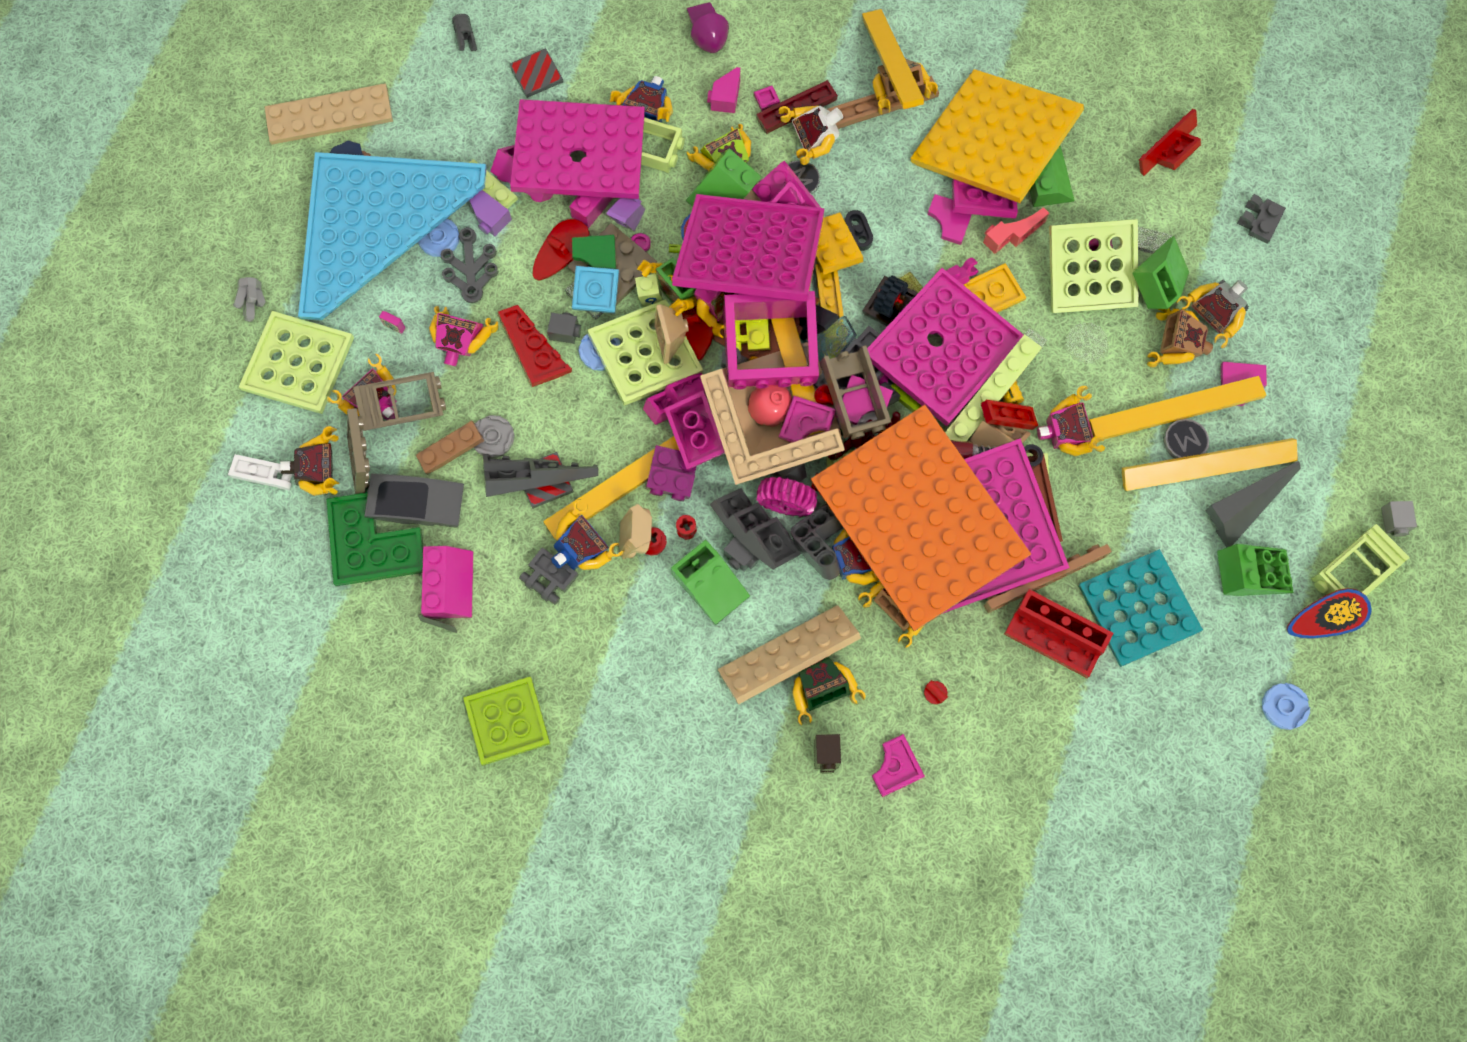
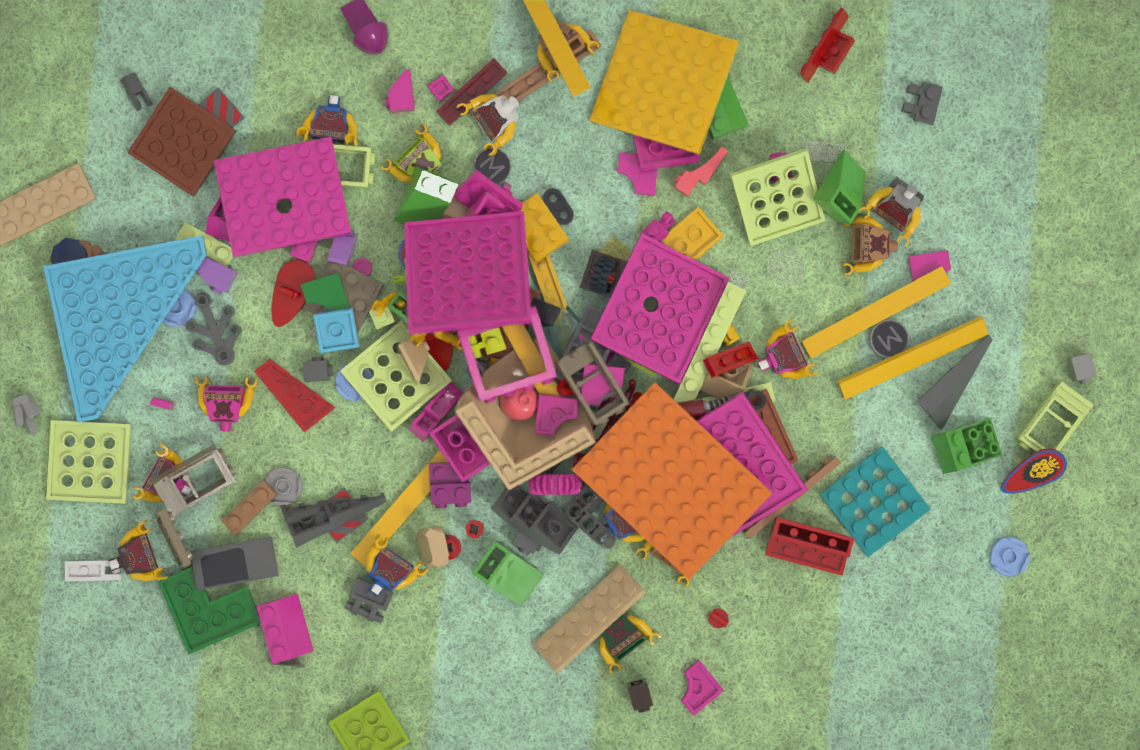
camera: 15 degrees left, 15 degrees up
(491, 85) = (182, 141): none -> copper plate

